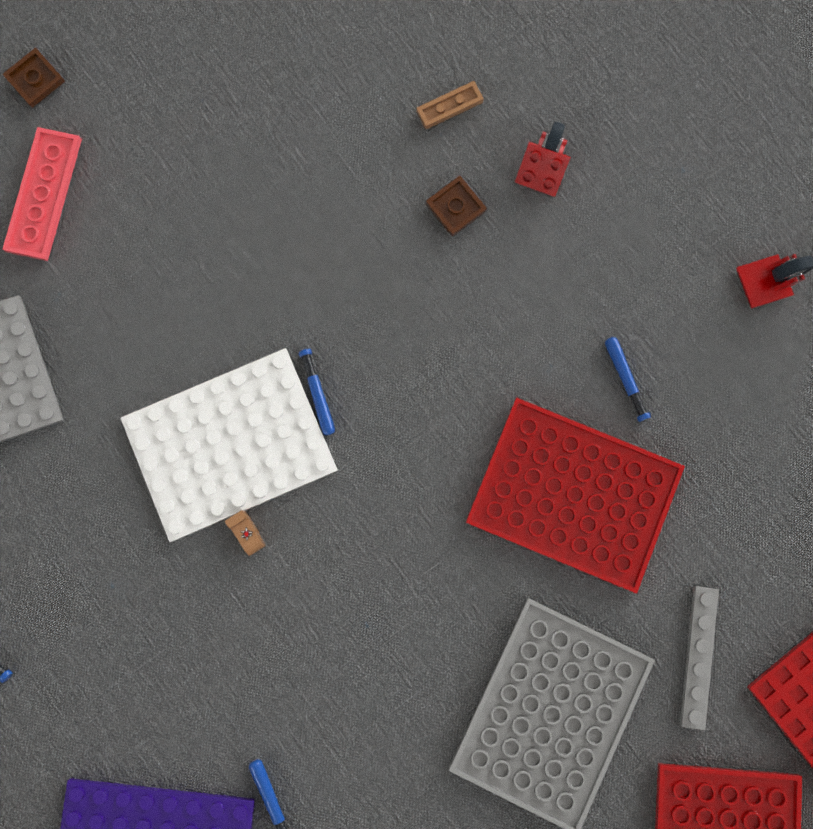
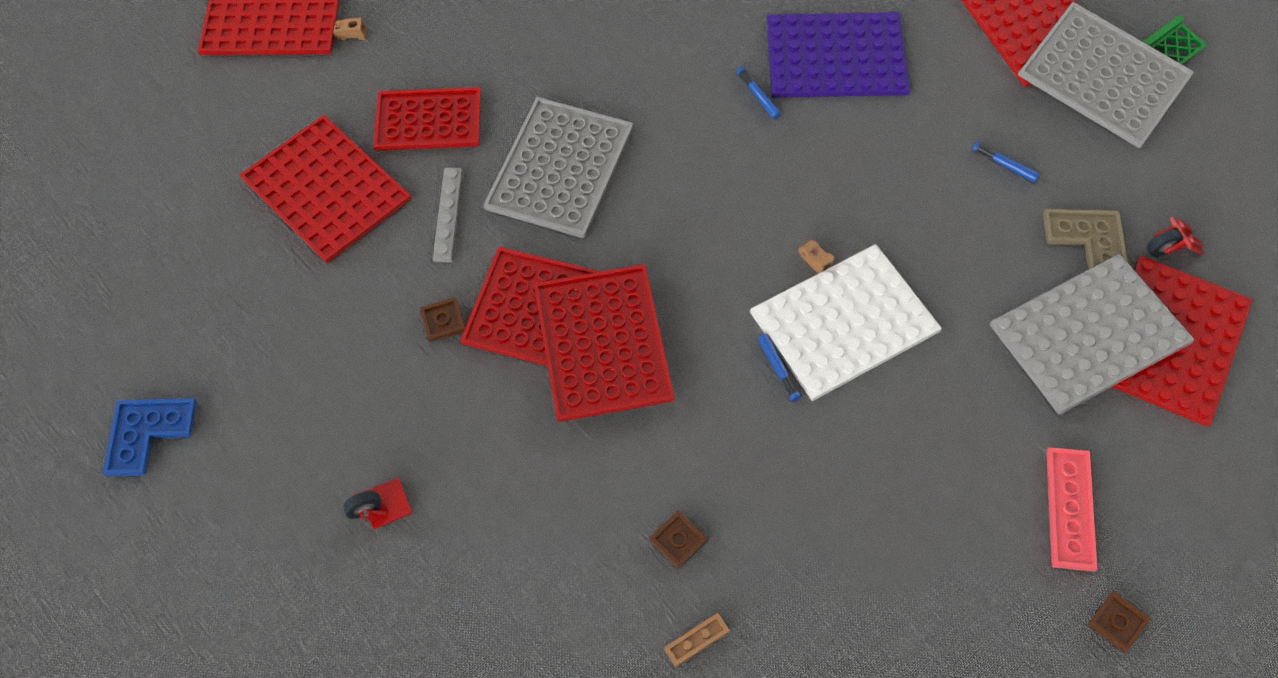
camera: 175 degrees right, 20 degrees down
(518, 440) = (602, 343): none -> red plate
(544, 167) = (597, 579): red plate -> none
(621, 365) = (514, 414): blue piece -> none
(705, 500) = (442, 319): none -> reddish brown plate

